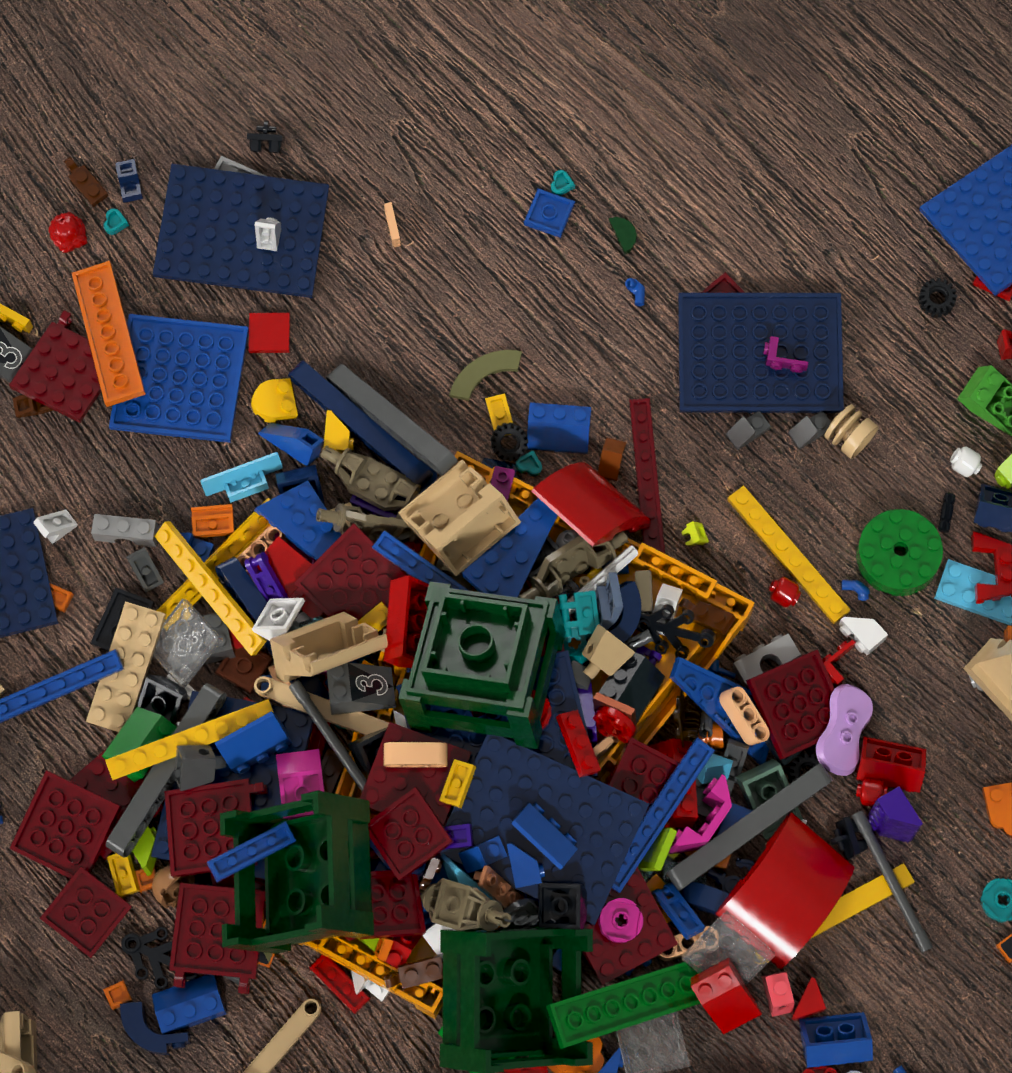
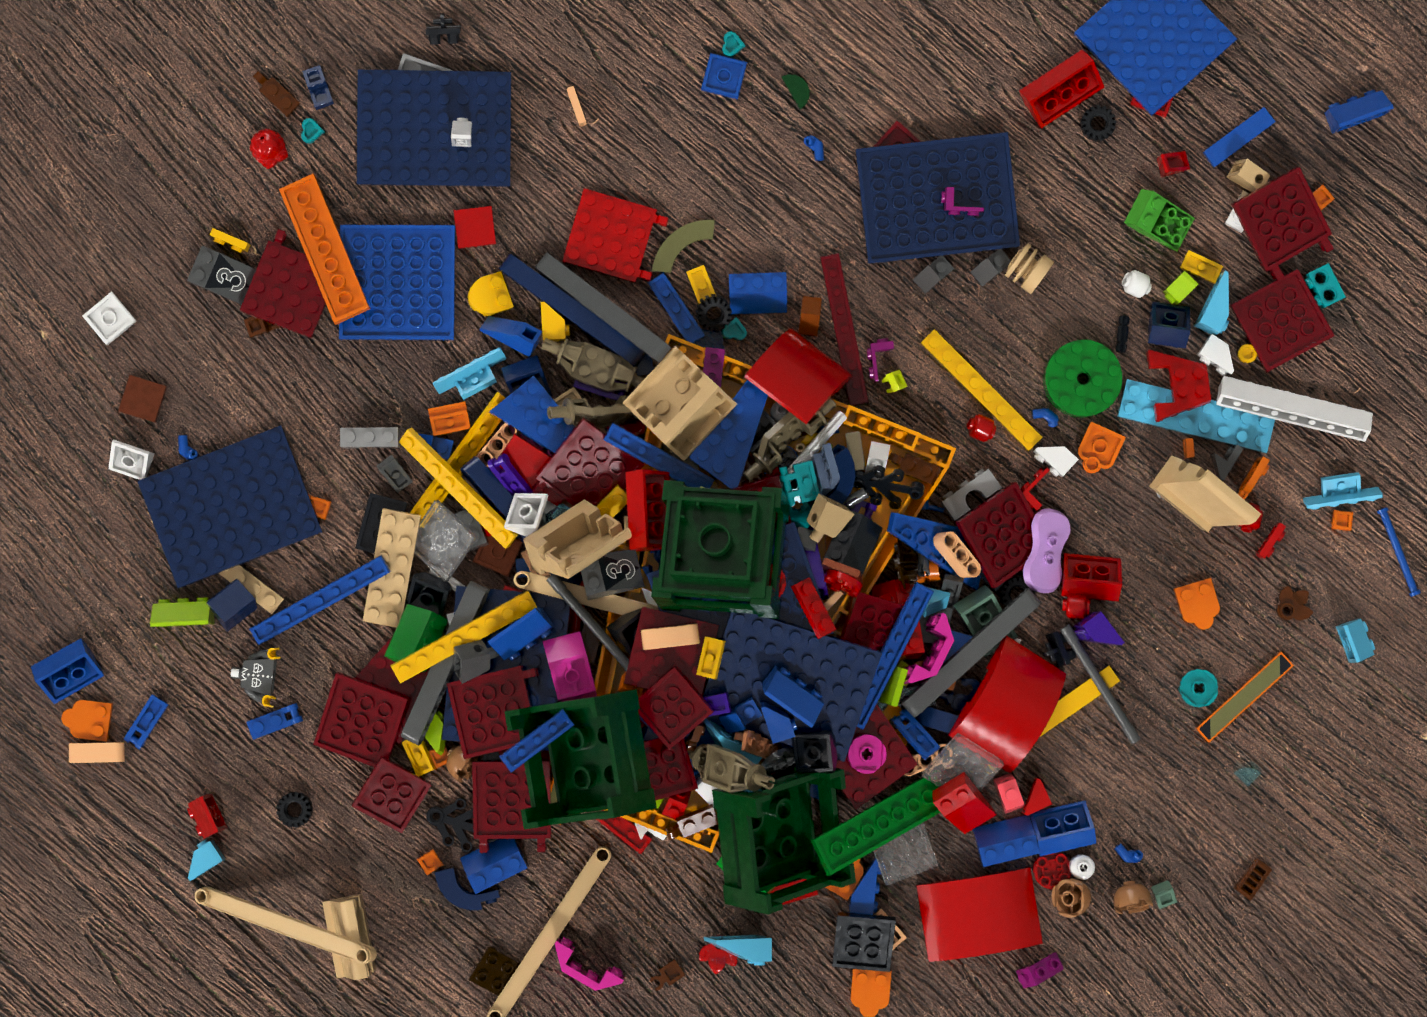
camera: 10 degrees left, 15 degrees up
(55, 525) = (305, 439): white slope -> none
(383, 948) = (662, 806): orange tile -> none
(411, 356) = (611, 236): none -> red plate
(468, 433) = (676, 309): none -> blue tile
(683, 496) = (880, 346): none -> magenta bracket
(769, 1046) = (1006, 840): none -> blue slope
(902, 259) = (1062, 88): none -> red slope
(912, 628) = (1099, 448): none -> orange plate

